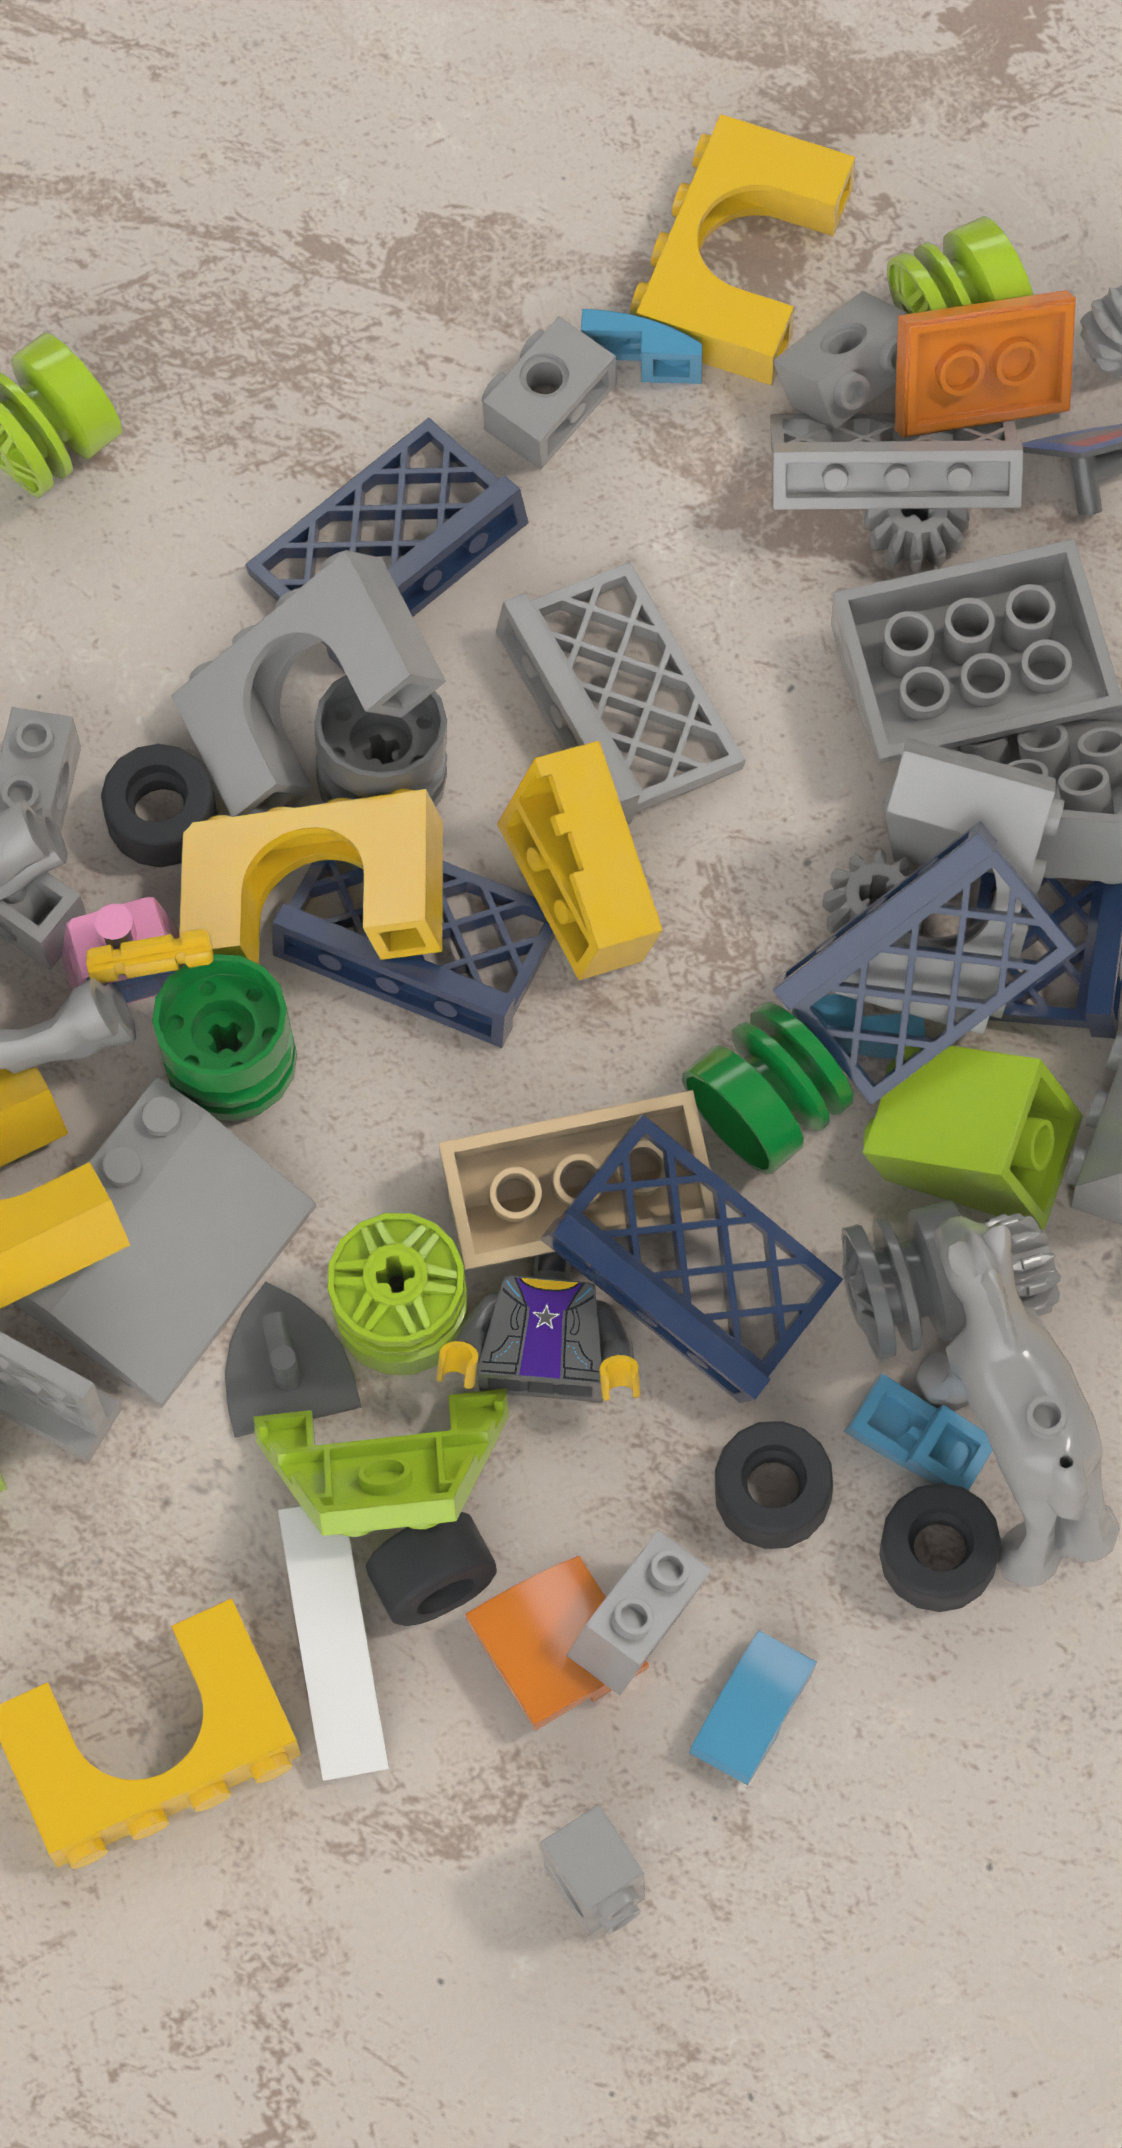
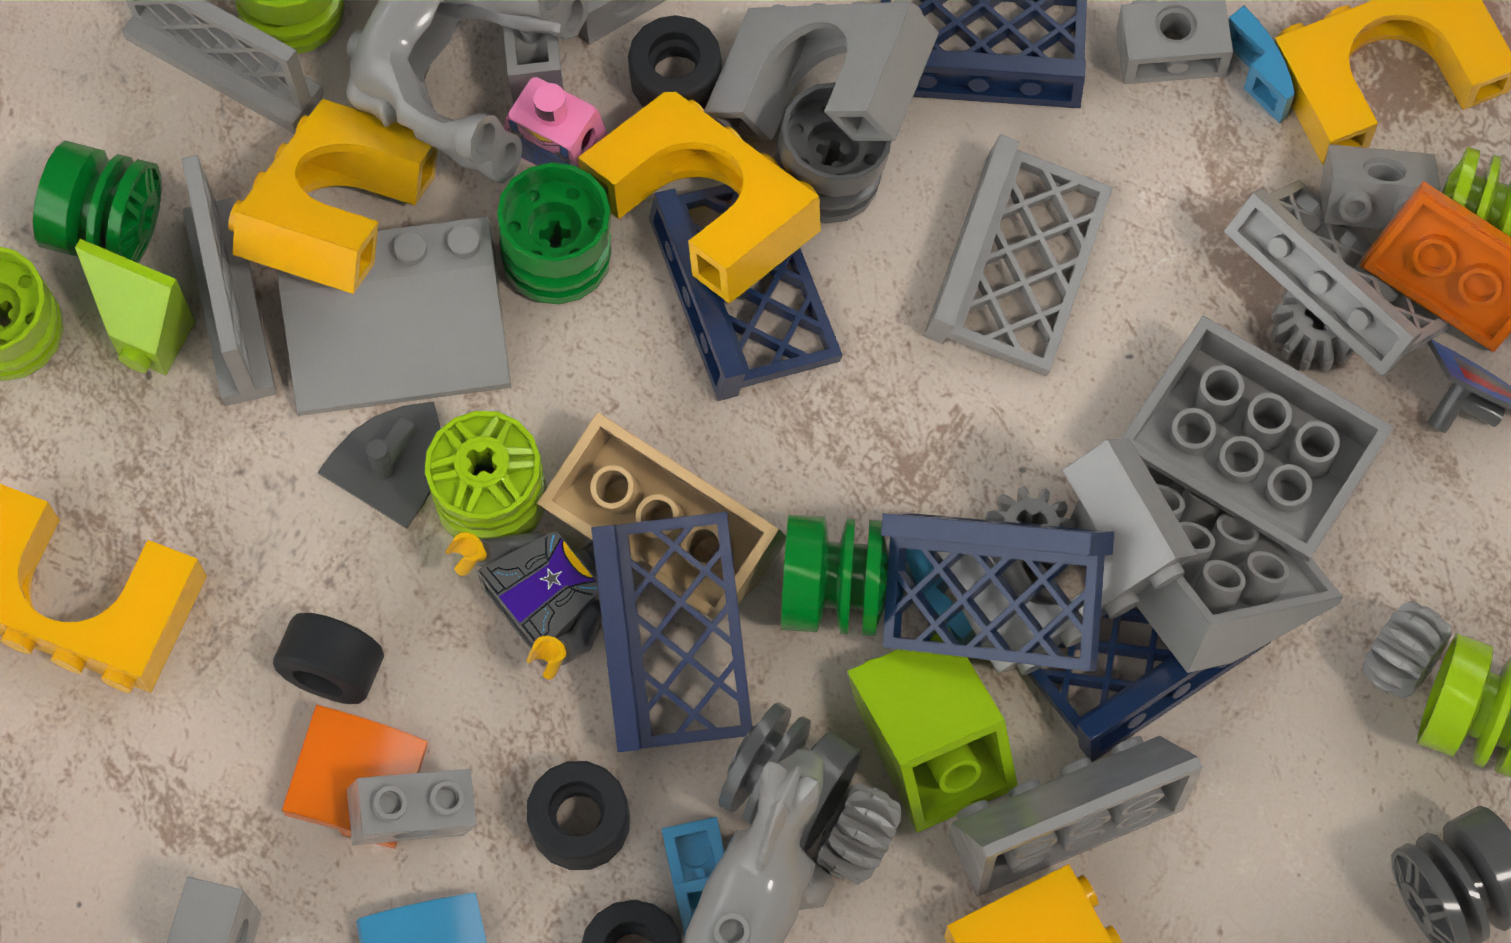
camera: 45 degrees right, 0 degrees up
(150, 956) = (550, 138): yellow axle -> none
(333, 1648) = (232, 642): white slope -> none
(388, 1479) = (358, 584): lime wing -> none
(581, 860) = (875, 333): yellow wedge -> none

